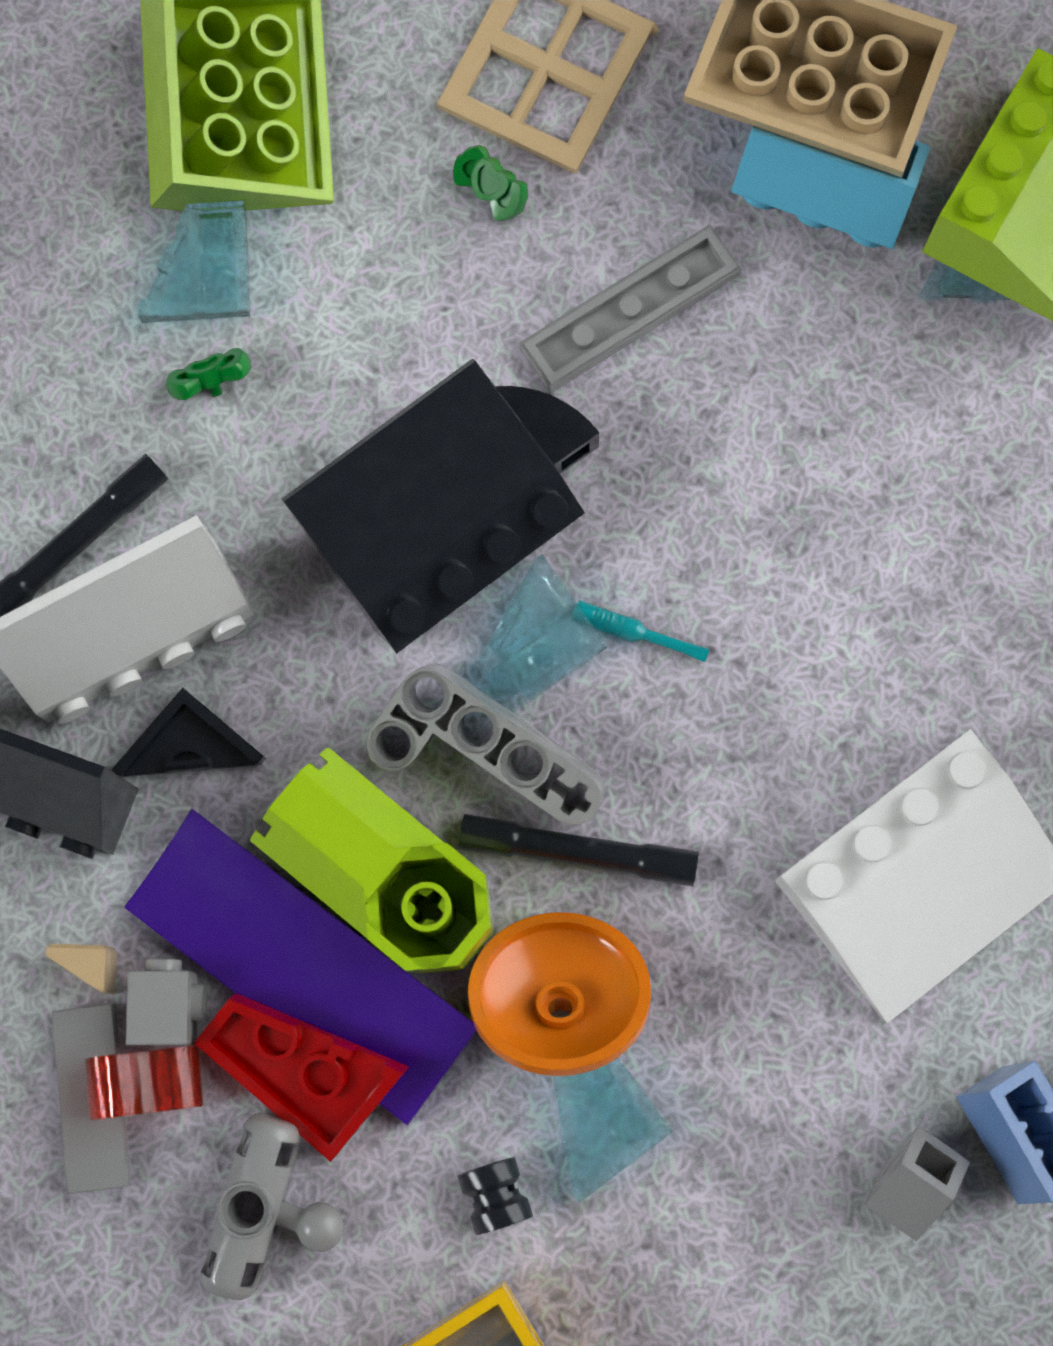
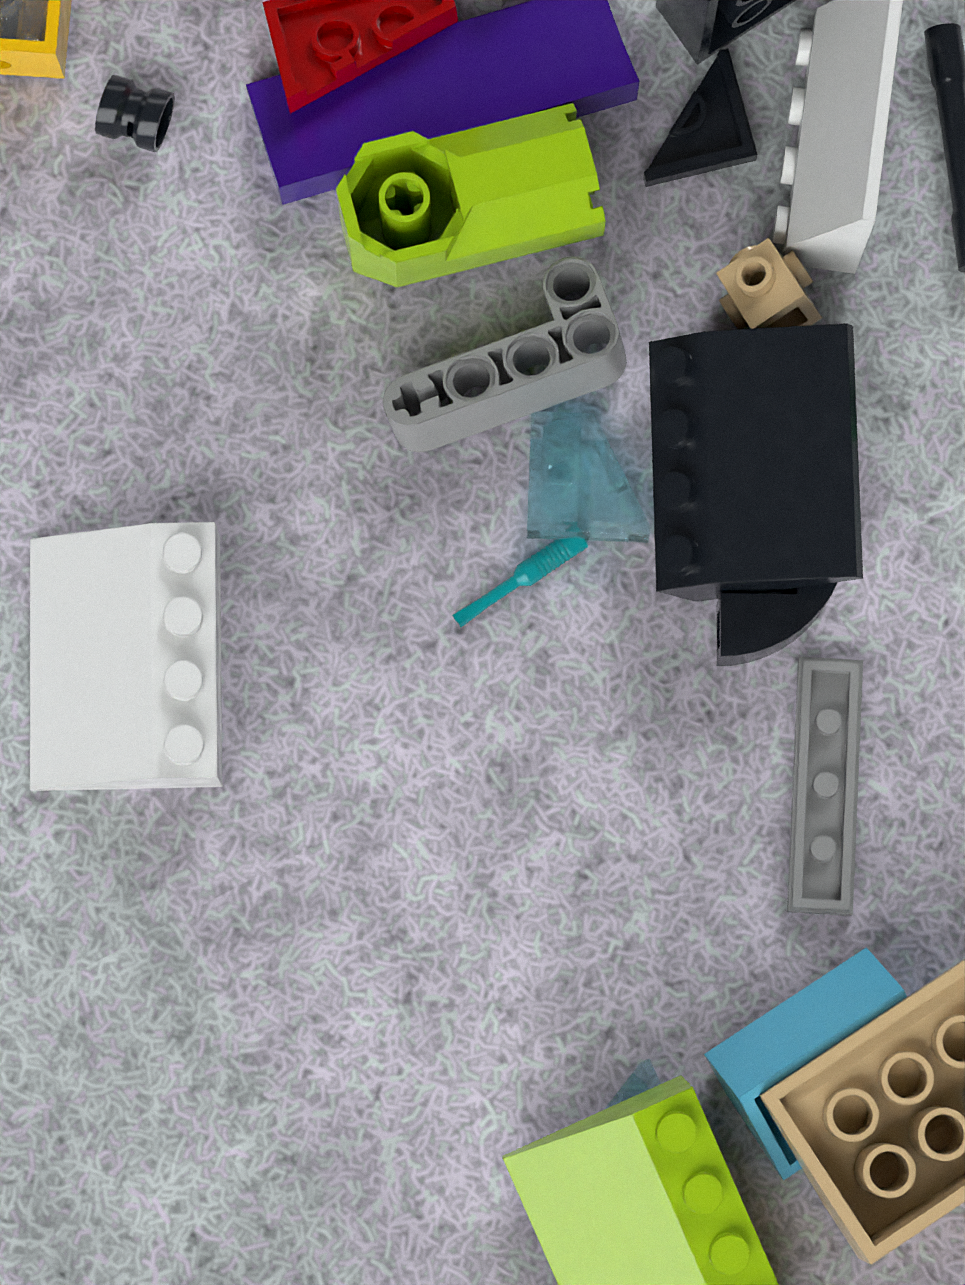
camera: 120 degrees right, 0 degrees up
(293, 576) = (767, 289): none -> tan brick
(553, 966) = (293, 281): orange dish -> none
(605, 1124) = (132, 248): clear light blue wing -> none
(644, 860) = (419, 338): black piece -> none

